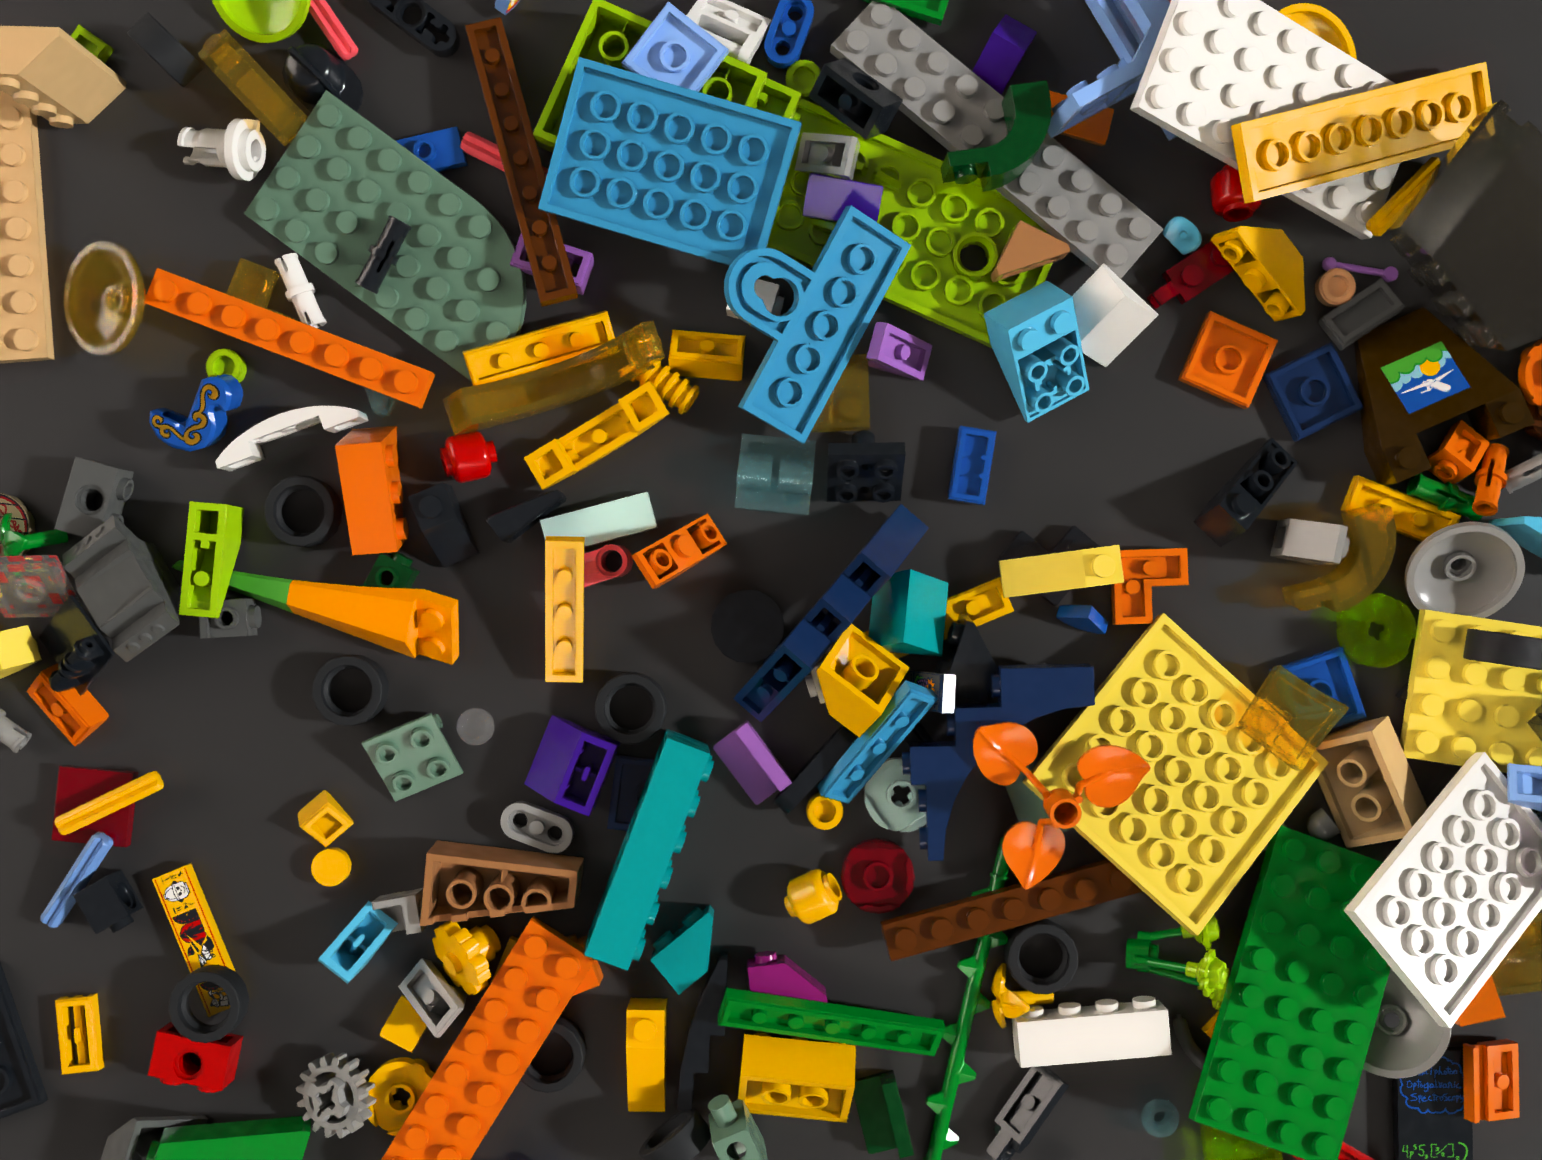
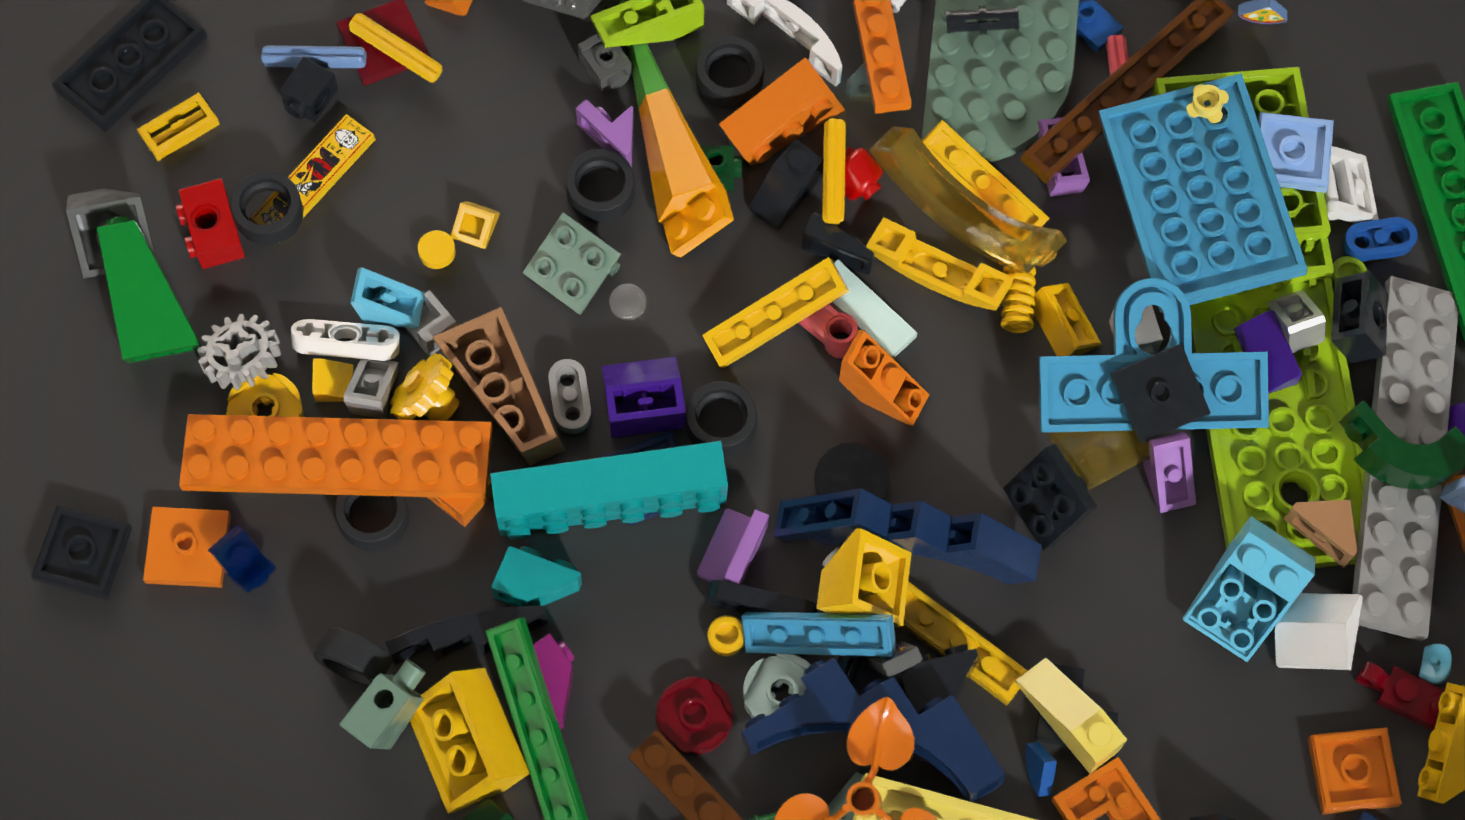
camera: 60 degrees right, 20 degrees down
(311, 649) = (607, 134): none -> medium lavender slope
(360, 999) = (322, 337): none -> white beam
(459, 481) = (834, 171): none -> yellow axle
(580, 107) = (1209, 93): none -> light yellow plate
(646, 1054) = (415, 596): yellow slope -> none
(775, 474) = (998, 428): clear light blue plate -> none
(813, 896) = (644, 662): yellow head -> none
(833, 322) = (1160, 393): none -> black plate
(910, 614) = (951, 607): teal slope -> none
(971, 465) = (1113, 592): blue plate -> none

